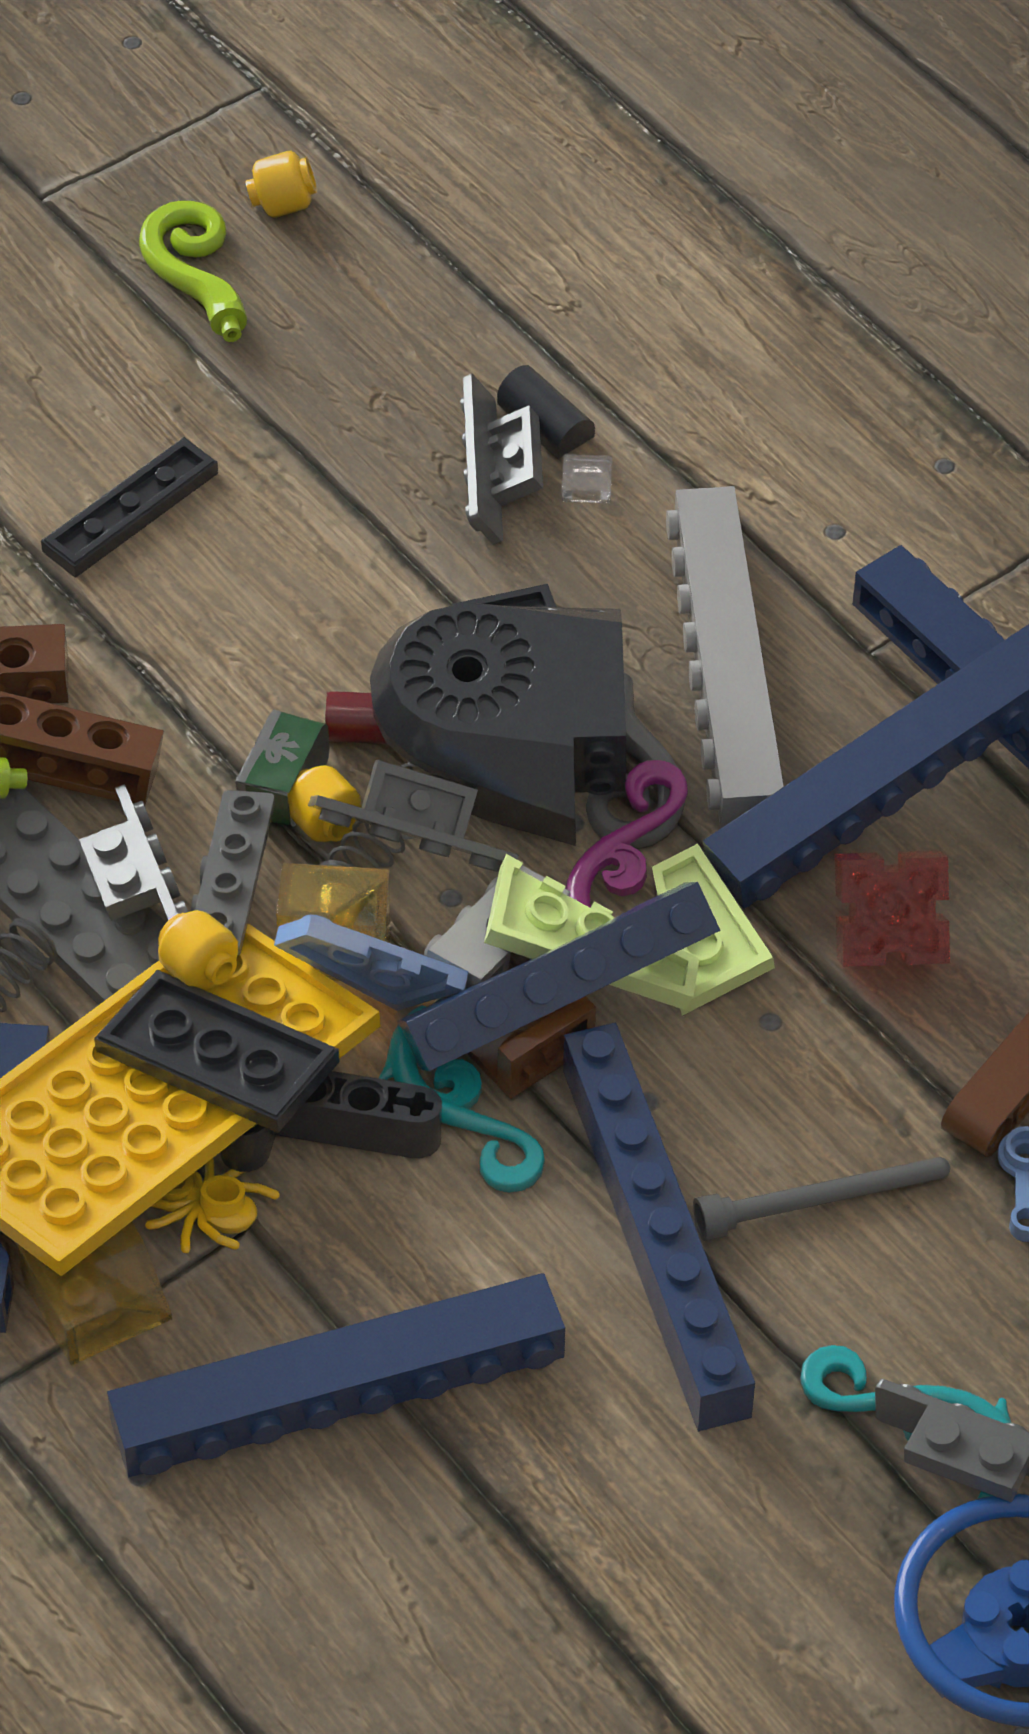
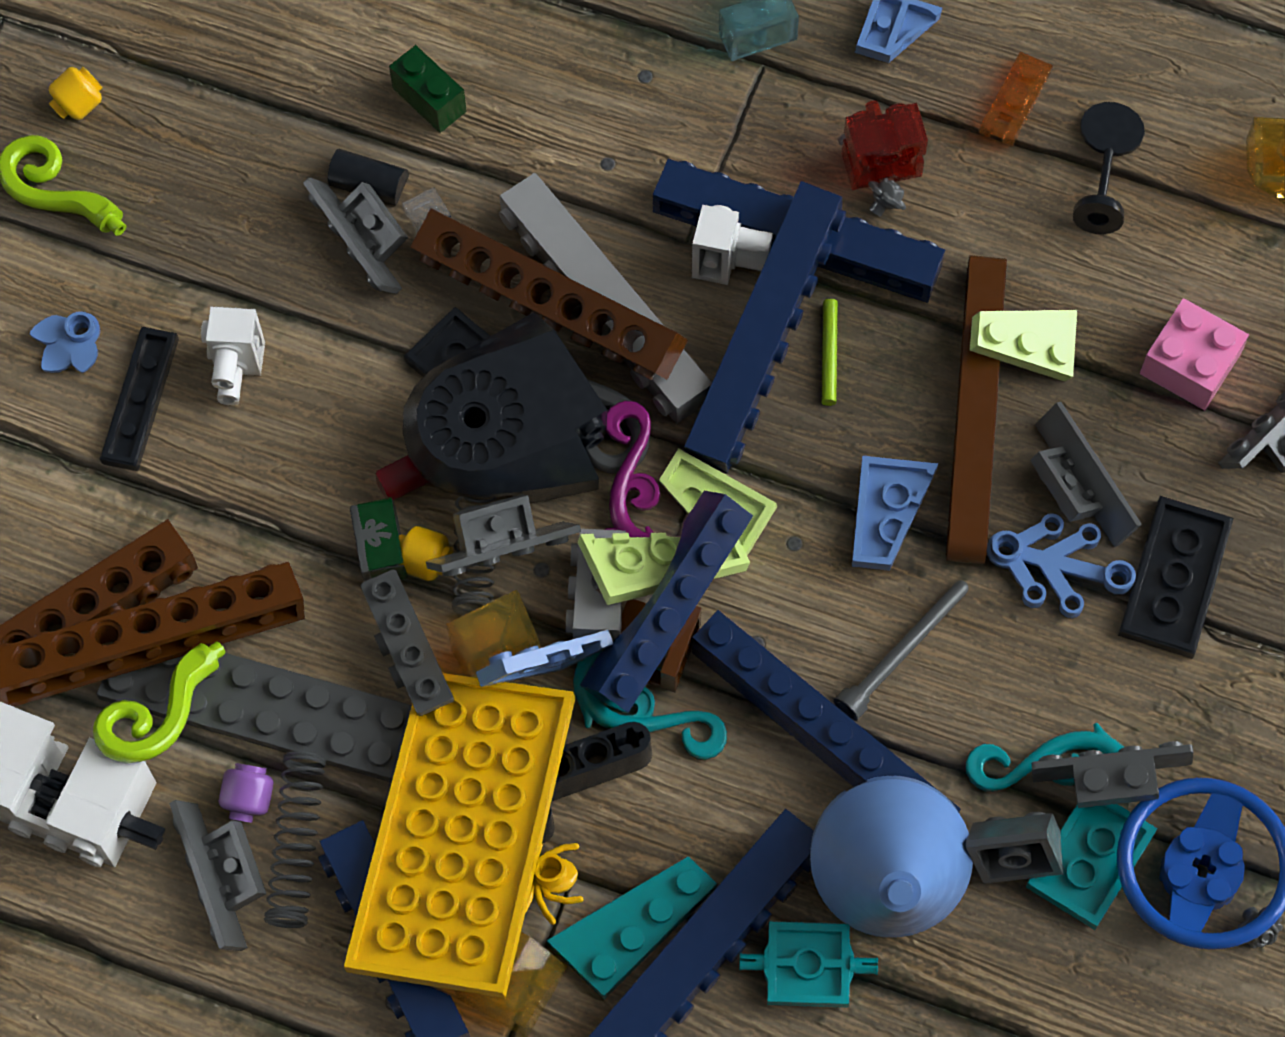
camera: 30 degrees left, 15 degrees up
(95, 414) = (63, 345): none -> medium blue plate
(128, 863) = (335, 678): bracket -> none
(198, 949) = (434, 718): yellow head -> none
(217, 1050) = (493, 781): black tile -> none
(253, 1310) = (627, 930): none -> teal wing
(264, 499) = (235, 348): none -> white brick
(454, 1463) = (808, 964): none -> teal plate
(632, 1389) = (891, 856): none -> medium blue cone
(659, 611) = (442, 233): none -> reddish brown brick
(676, 355) = (427, 88): none -> dark green brick
(793, 1465) = (1016, 847): none -> dark grey slope
(862, 1537) = (1090, 862): none -> teal plate
(892, 908) = (831, 429): clear red brick -> none
(897, 657) = (724, 244): none -> white brick
(907, 1034) = (886, 507): none -> medium blue wing
(973, 824) = (829, 352): none -> lime bar

